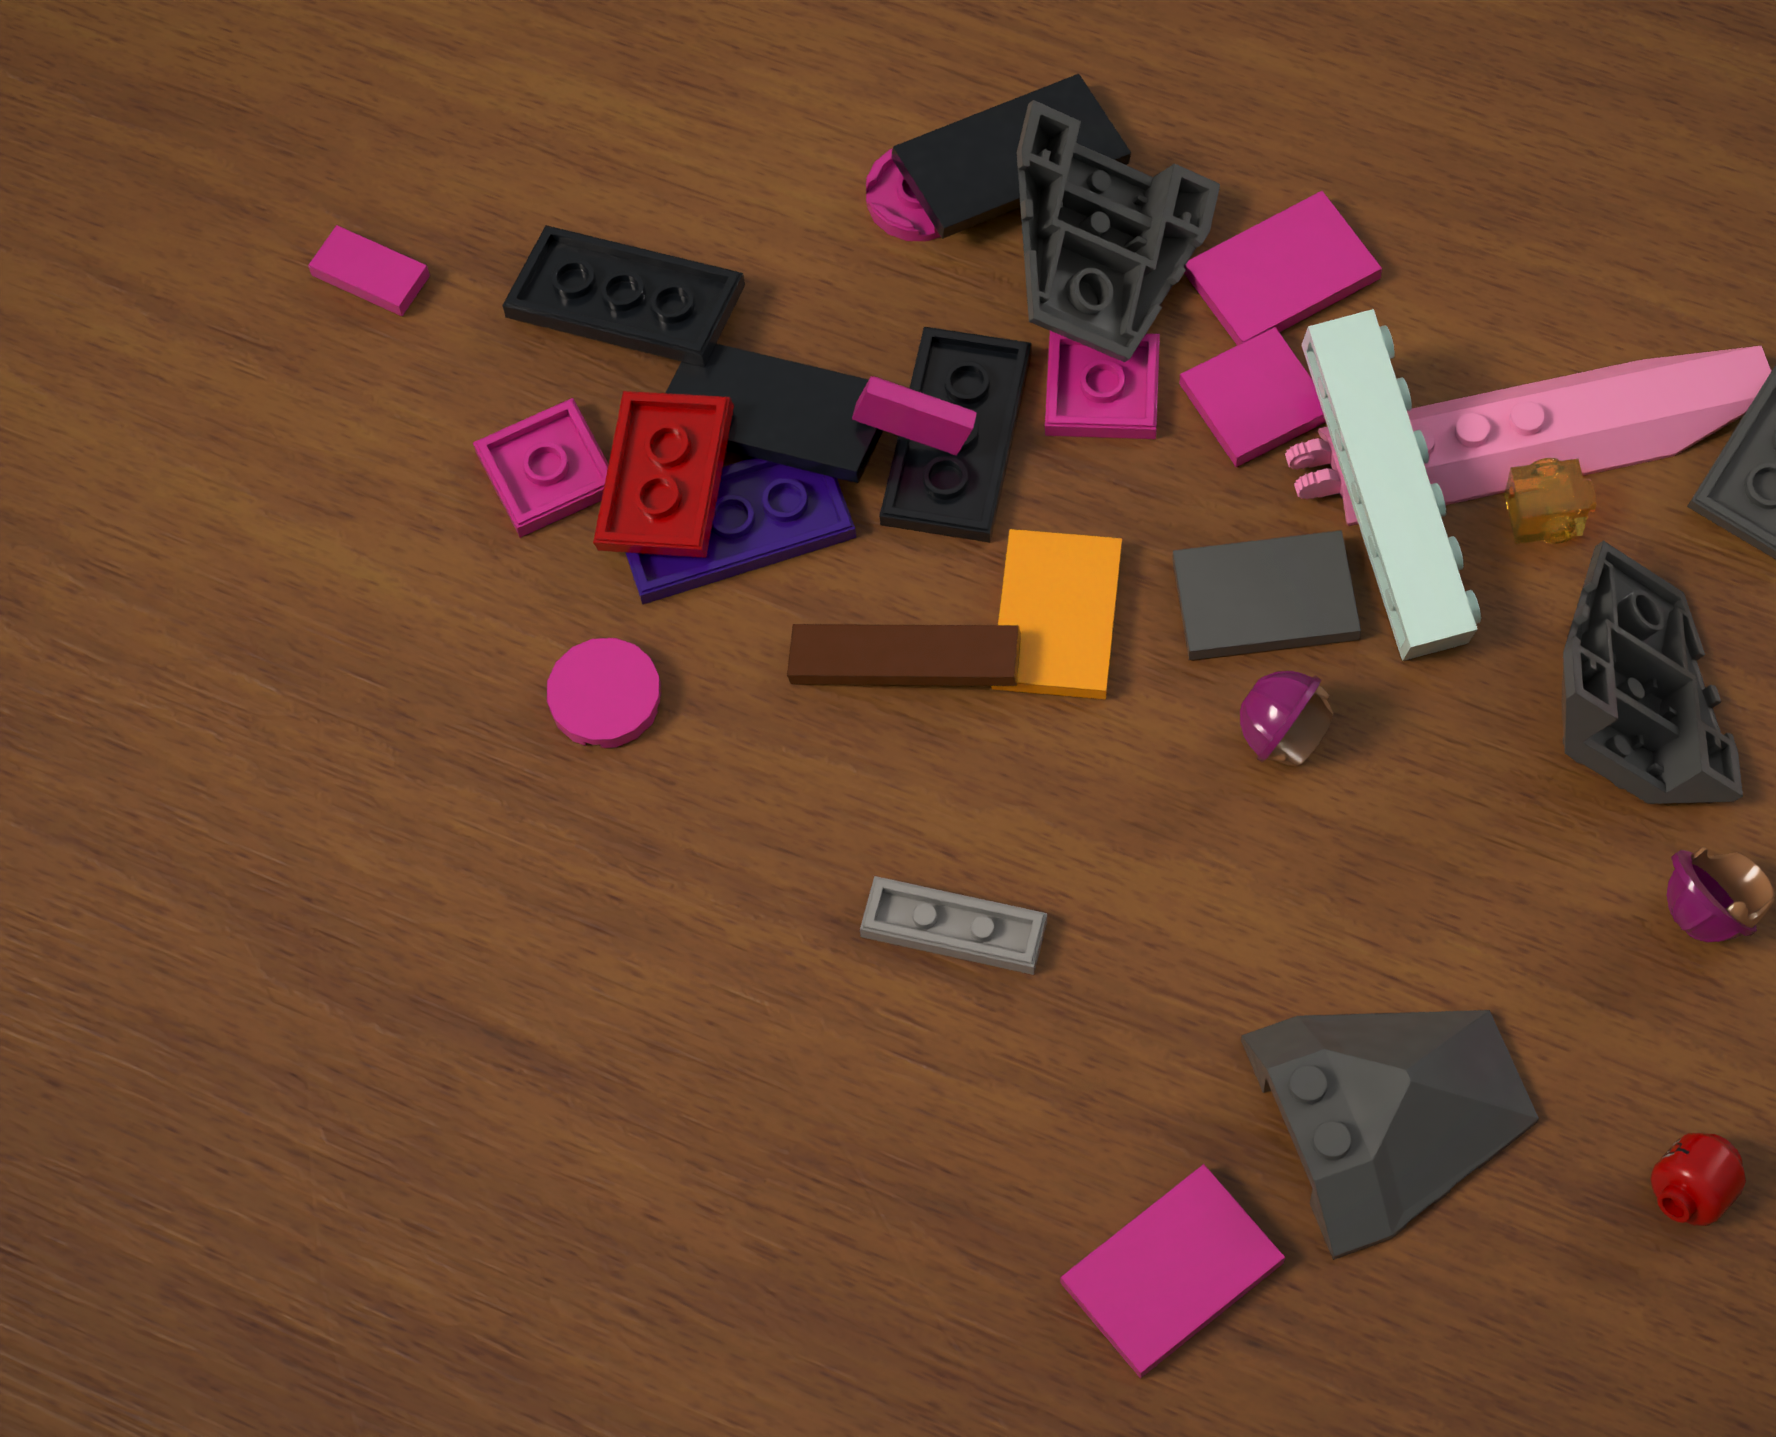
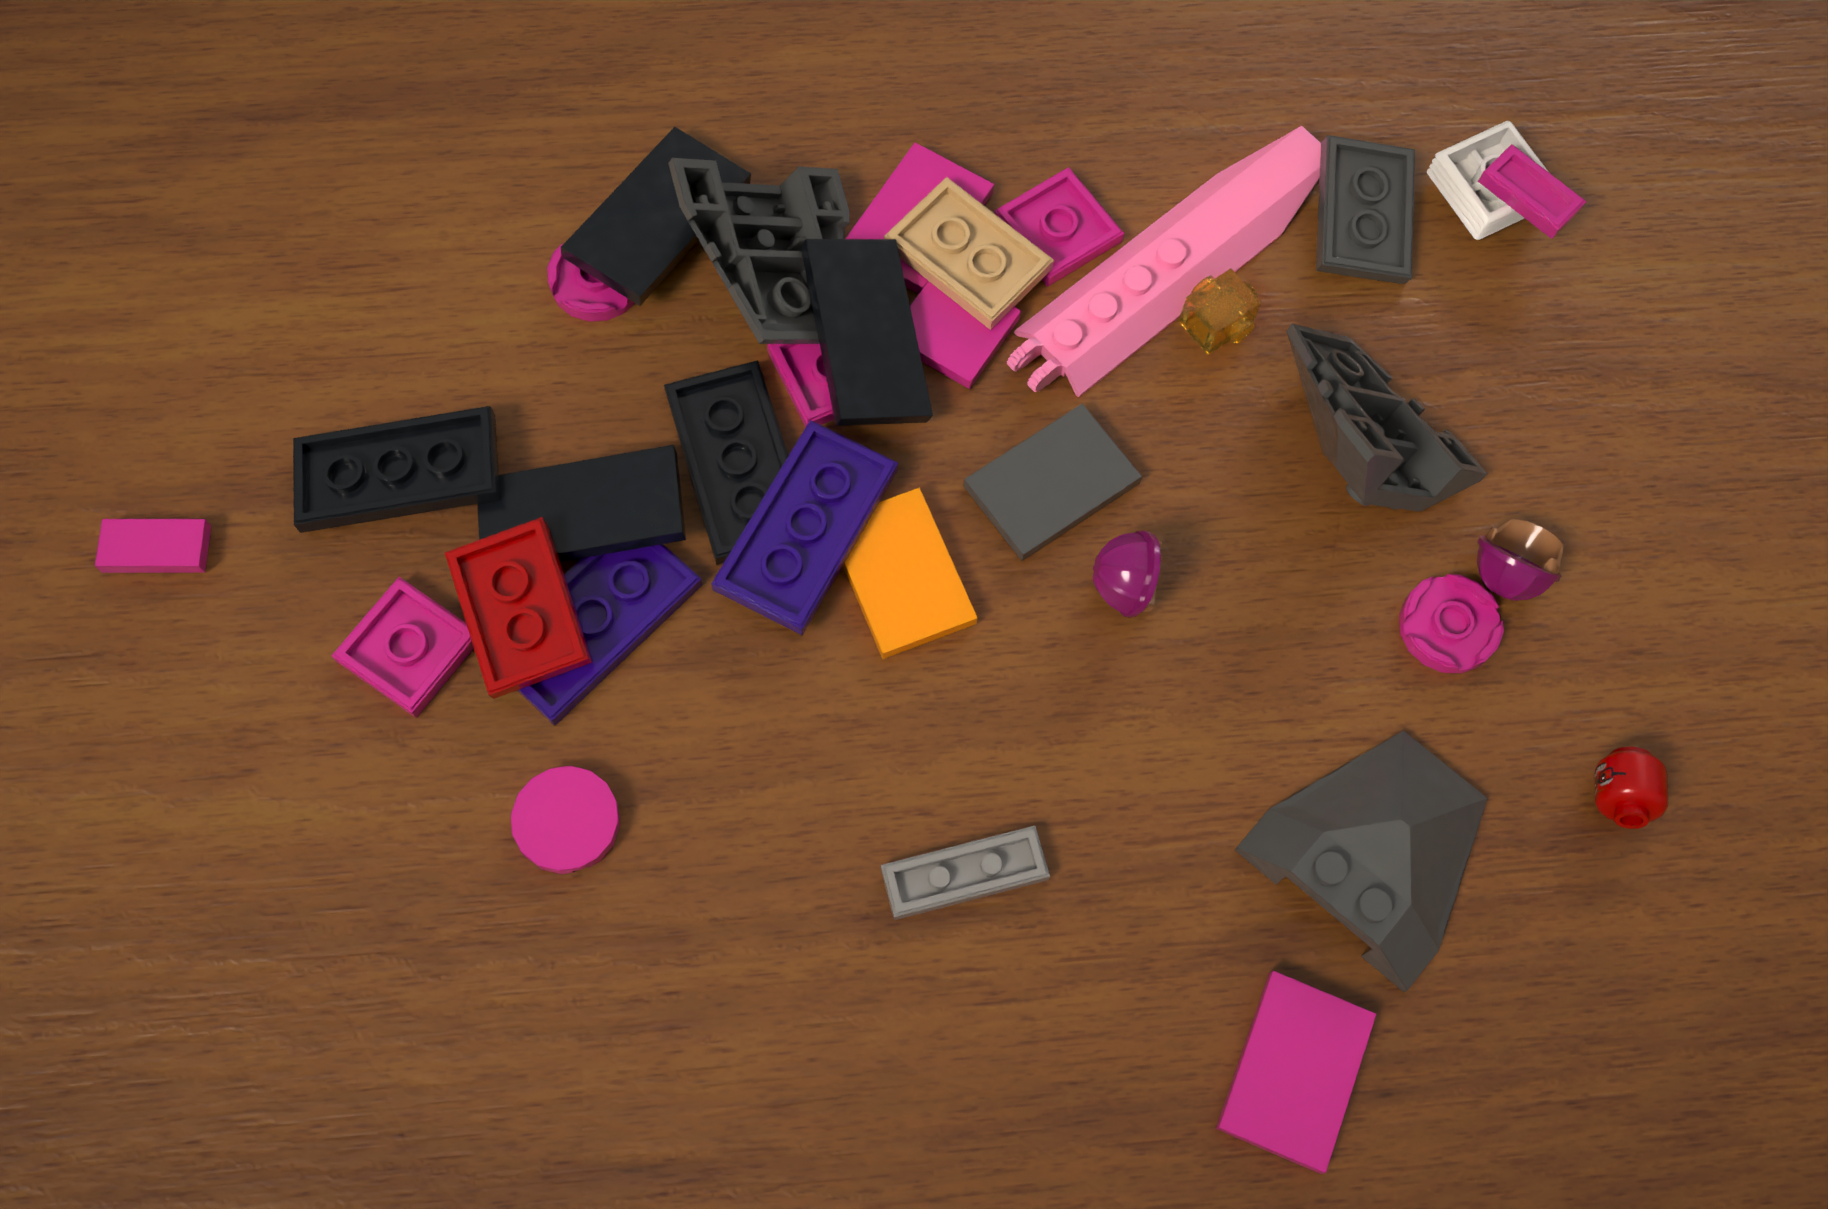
camera: 40 degrees left, 5 degrees up
(904, 654) = (800, 666): reddish brown tile -> none
(914, 415) = (706, 463): dark pink tile -> none
(984, 523) = (805, 527): none -> dark purple tile
(1151, 358) = (866, 332): none -> black tile
(1281, 301) = (969, 253): none -> tan tile
(1389, 484) = (1108, 350): light aqua brick -> none
(1436, 338) = (1063, 223): none -> dark pink tile
(1610, 931) = (1450, 623): none -> dark pink tile

